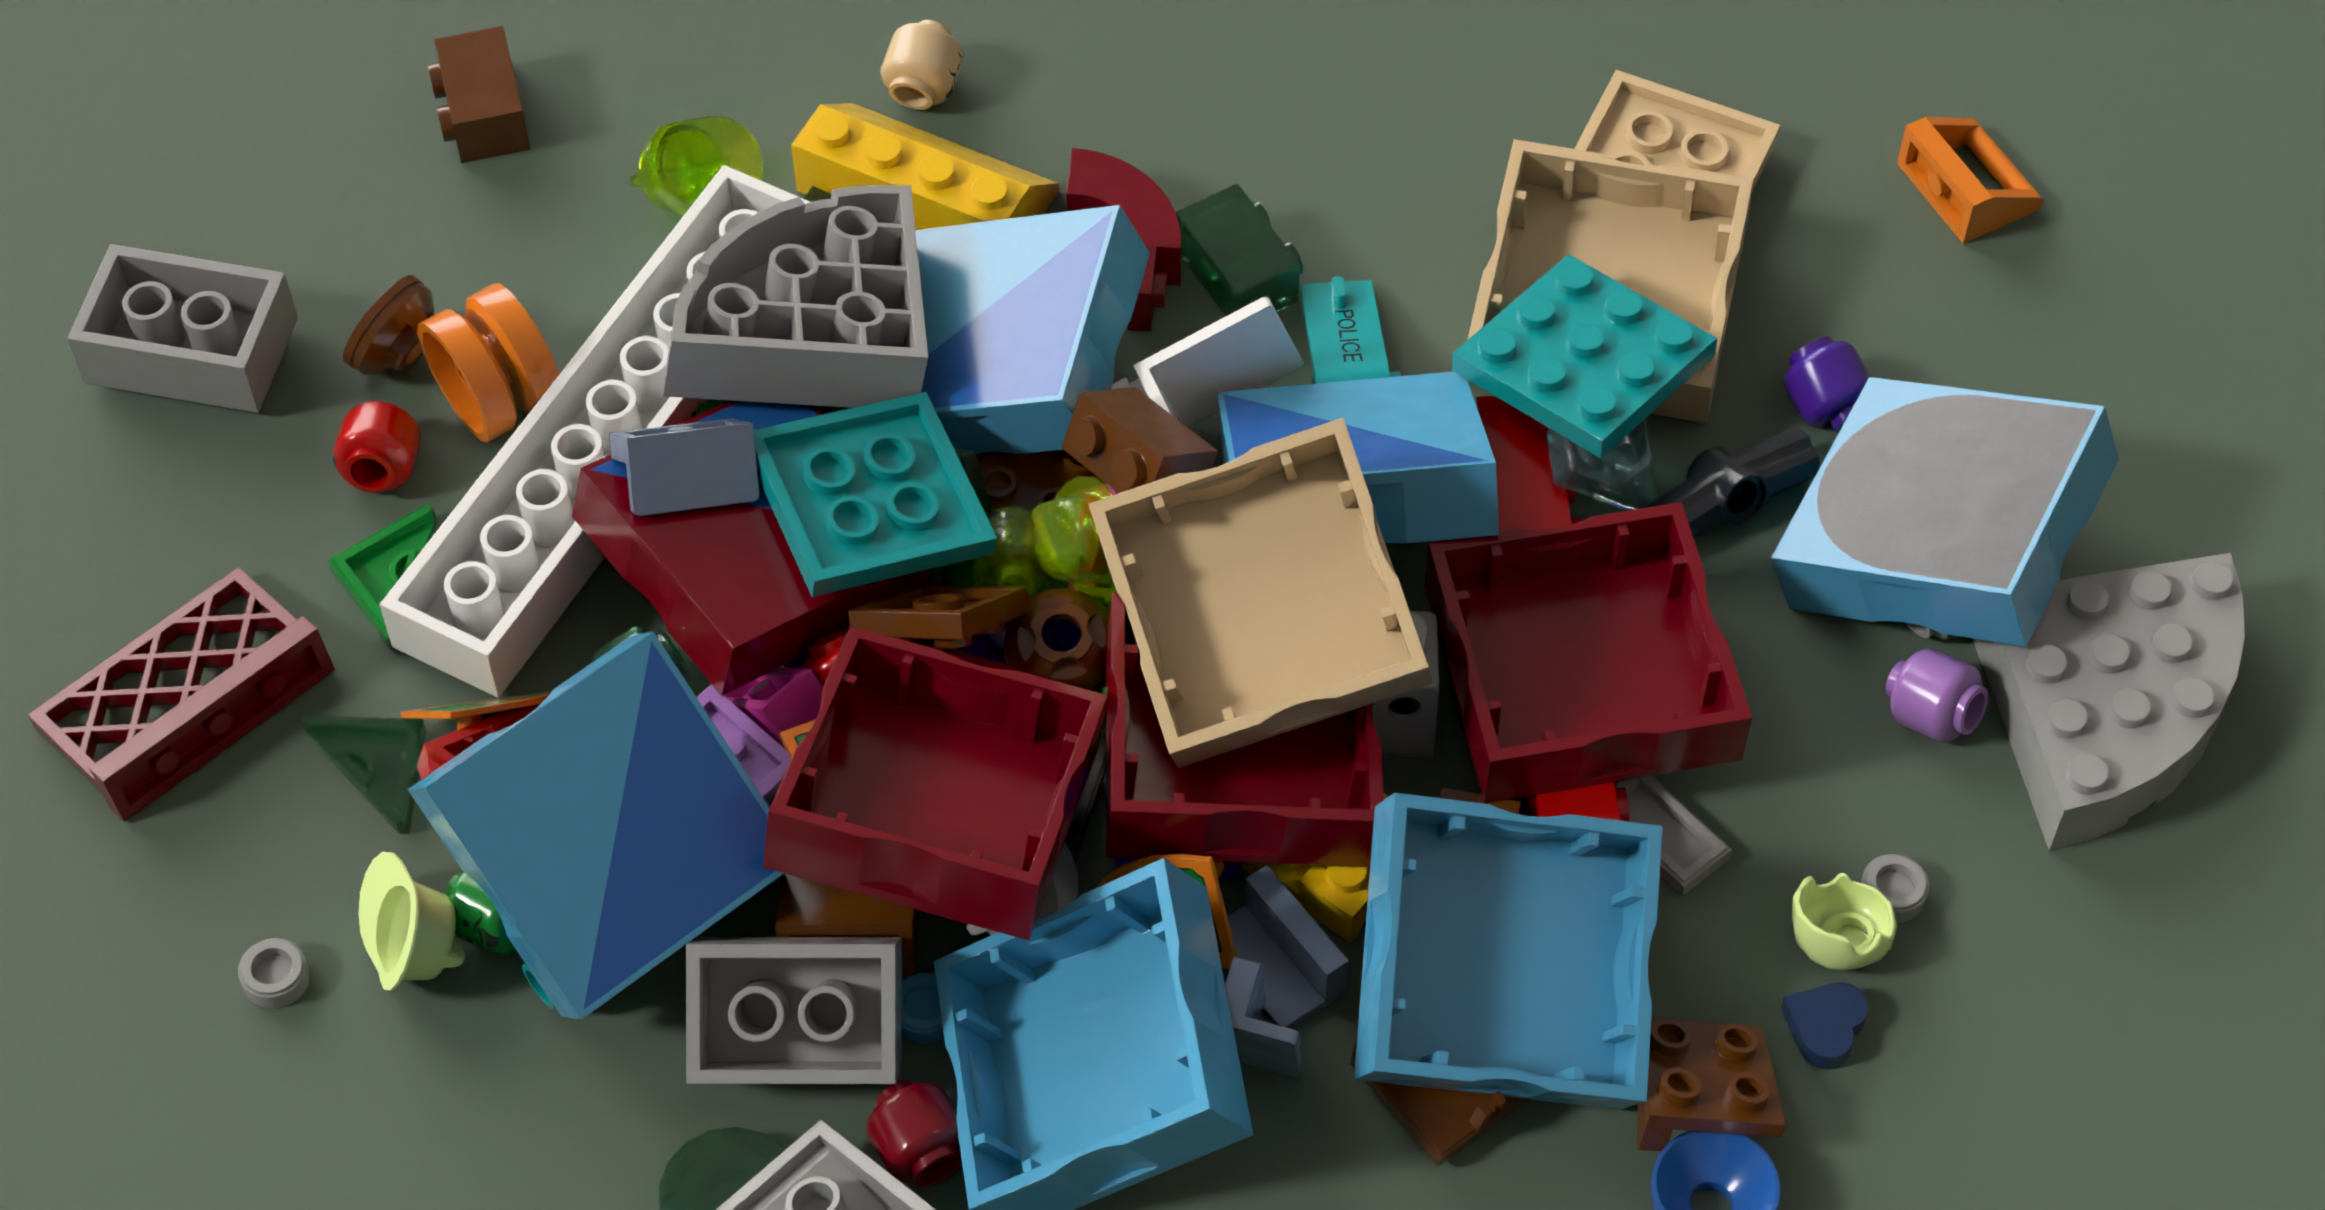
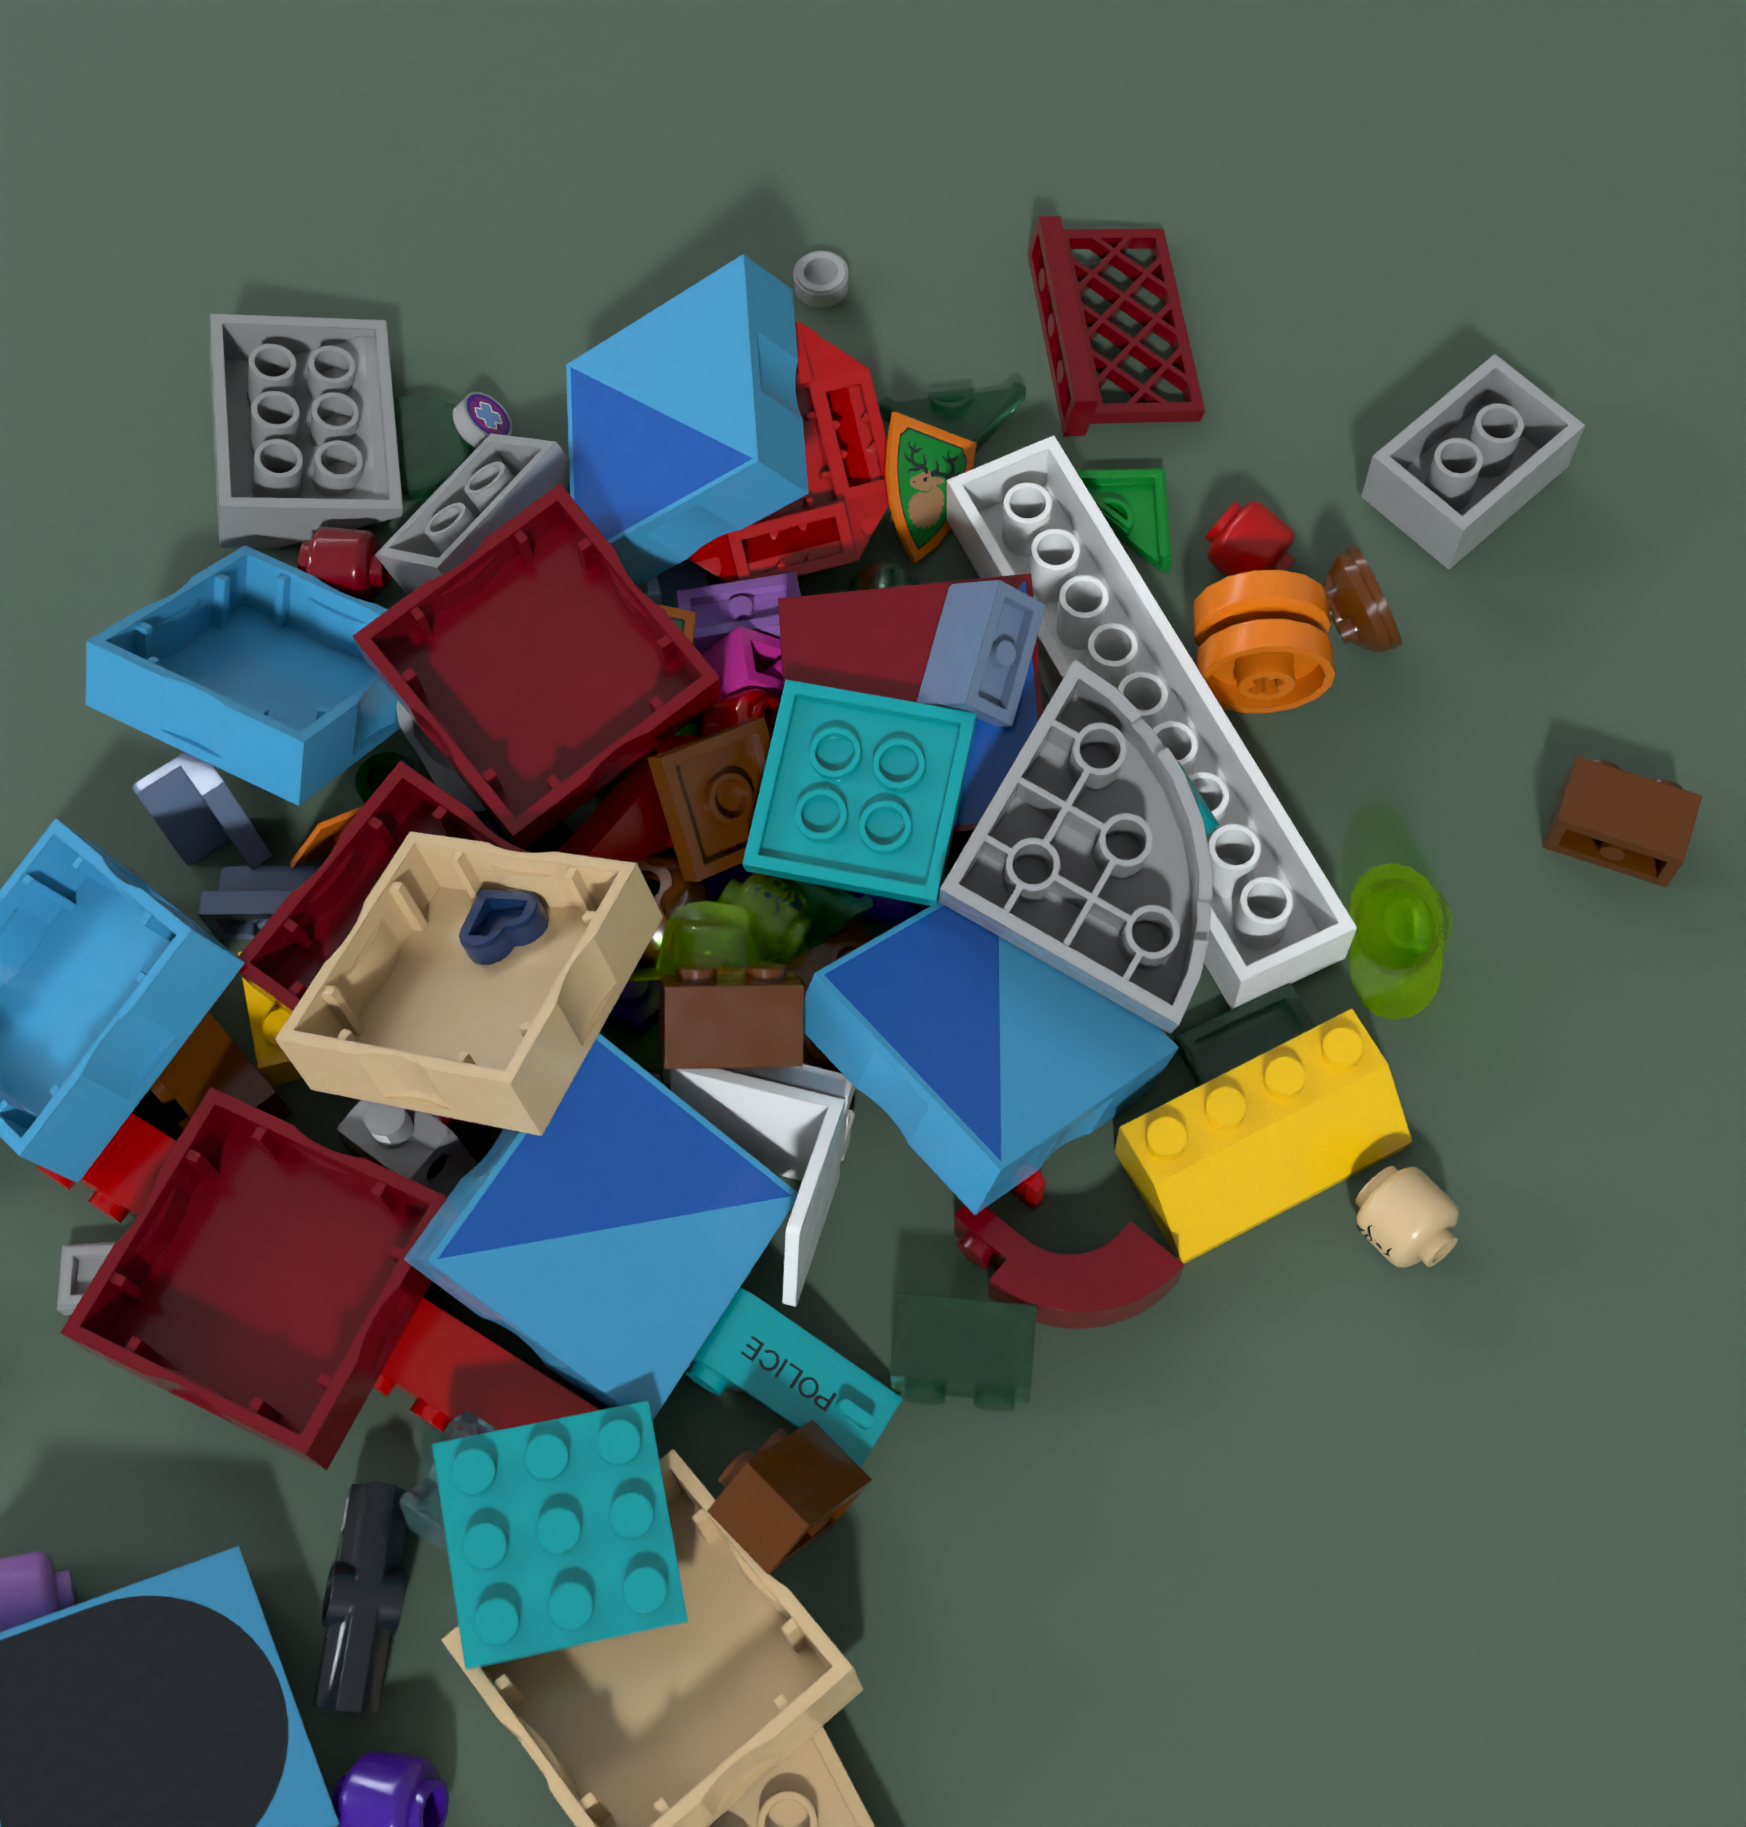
camera: 130 degrees right, 10 degrees up
(663, 1139) = (479, 417): none -> tile
(1192, 636) = (500, 923): none -> dark blue tile
(1433, 264) = (786, 1494): none -> reddish brown brick

